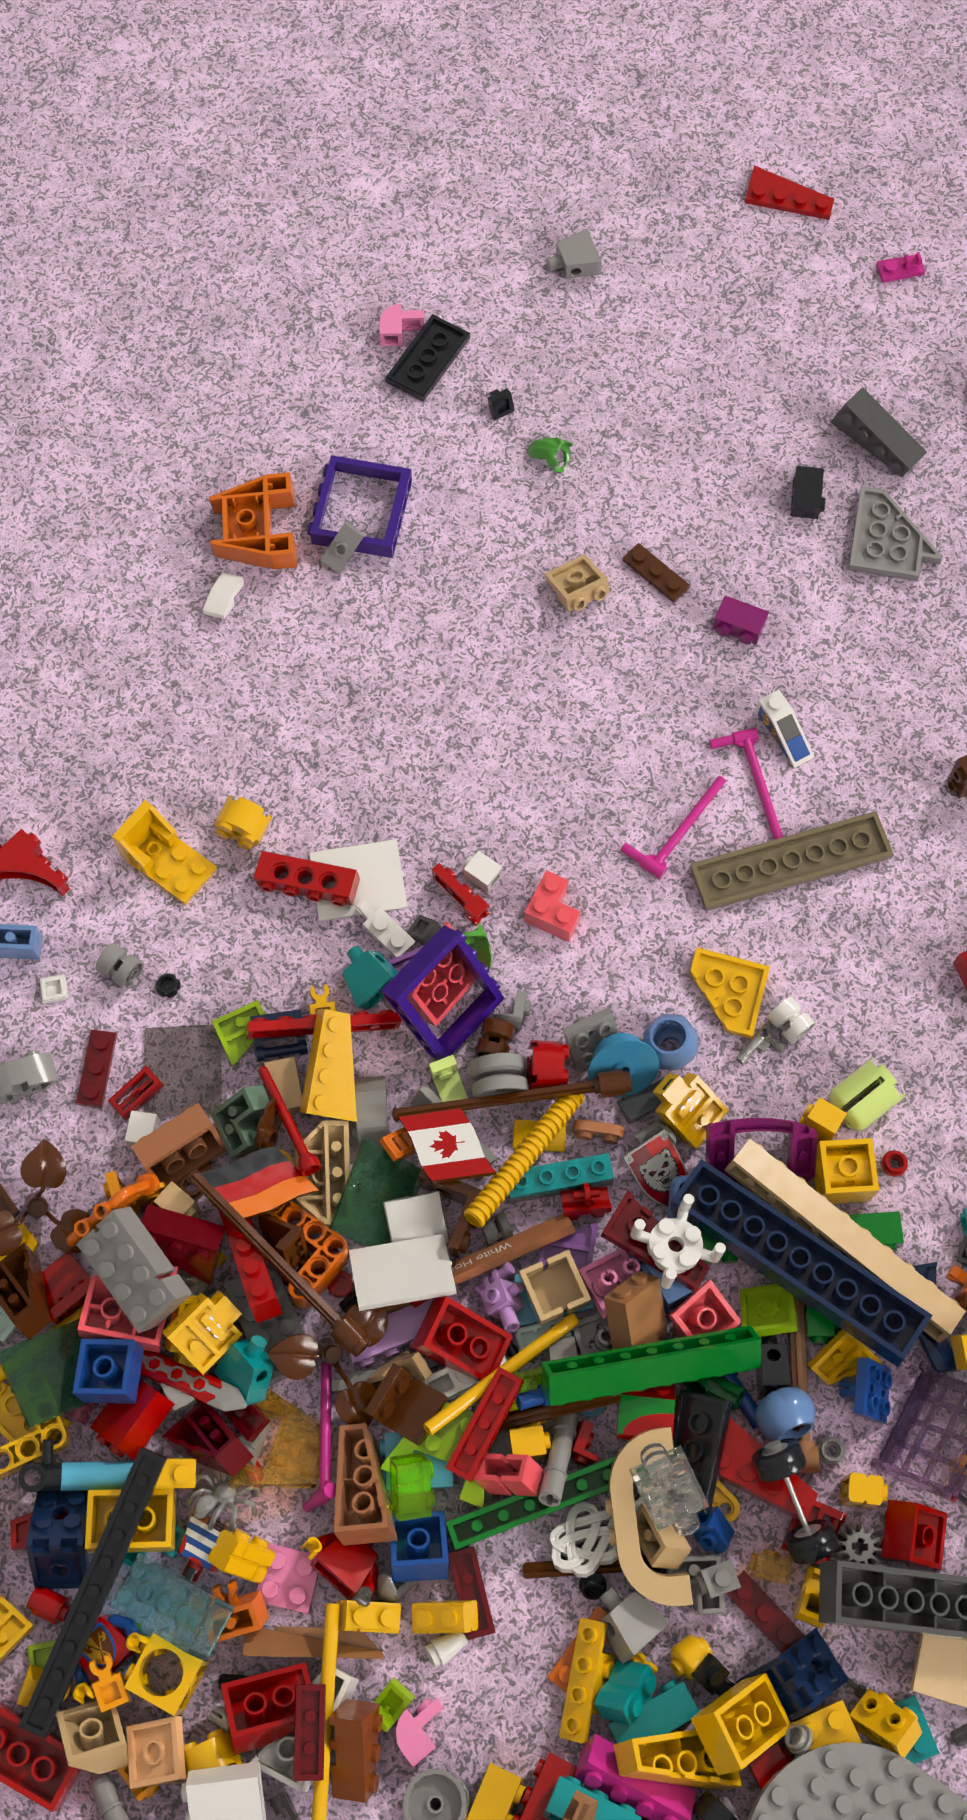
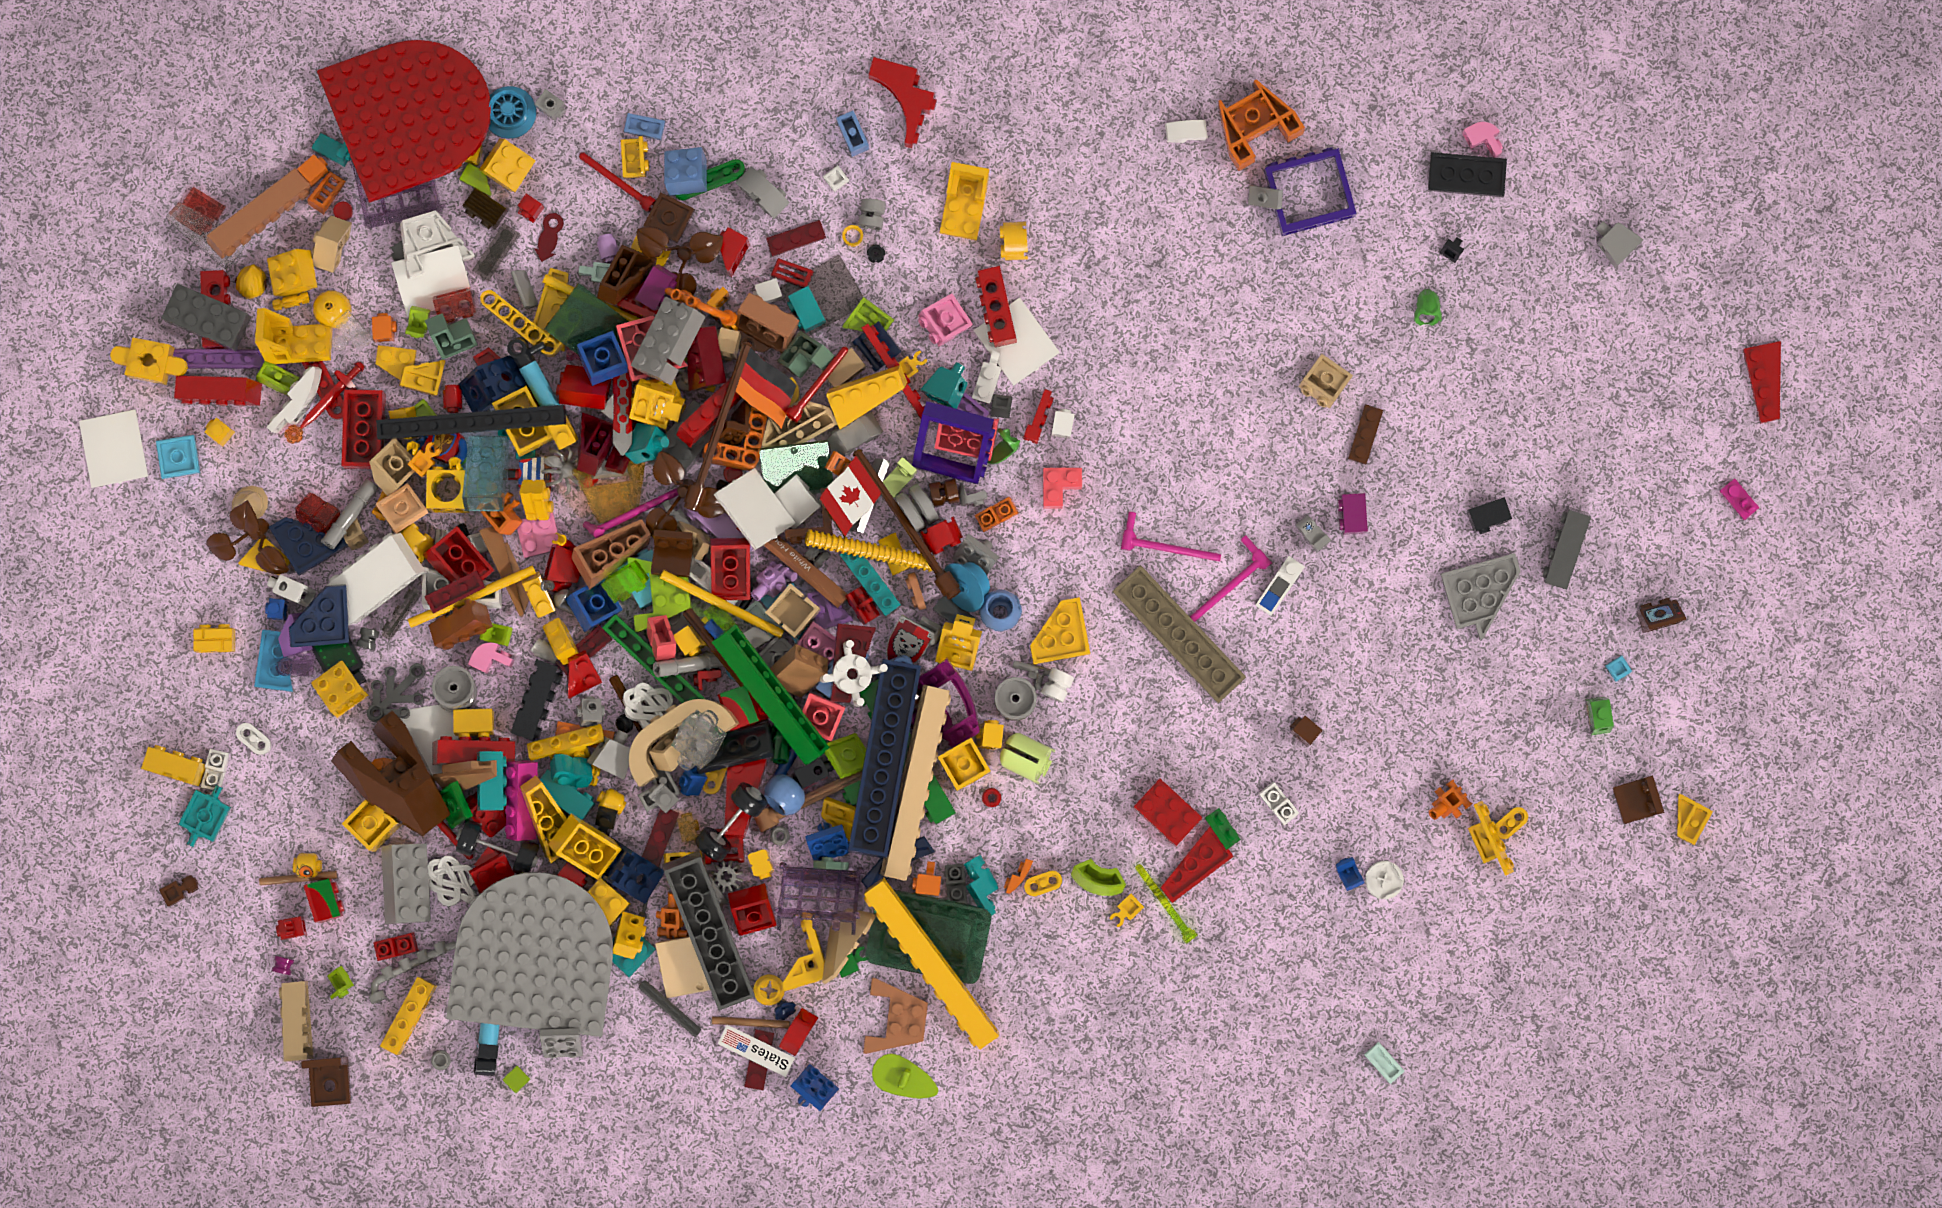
camera: 65 degrees right, 15 degrees up
(59, 1260) = (653, 289): none -> magenta brick
(68, 1143) = (733, 249): none -> red slope
(126, 992) = (849, 228): none -> yellow piece
(186, 1091) = (806, 309): none -> teal brick
(256, 1665) = (478, 542): none -> white tile
(268, 1126) = (807, 374): reddish brown plate -> none
(290, 944) = (944, 320): none -> bright pink plate
(485, 1424) = (683, 608): red plate -> none
(501, 1611) = (581, 674): none -> red wing
(508, 1694) = (537, 700): none -> black wedge
(550, 995) = (996, 514): none -> orange slope
(557, 1624) = (590, 711): none -> light grey brick
(743, 670) = (1312, 533): none -> light grey leg
(785, 1090) = (1015, 710): none -> light grey wheel
(798, 1739) = (592, 884): light grey plate -> none
(885, 1649) = (671, 920): none -> orange piece
(899, 1401) = (827, 863): none -> sand green plate

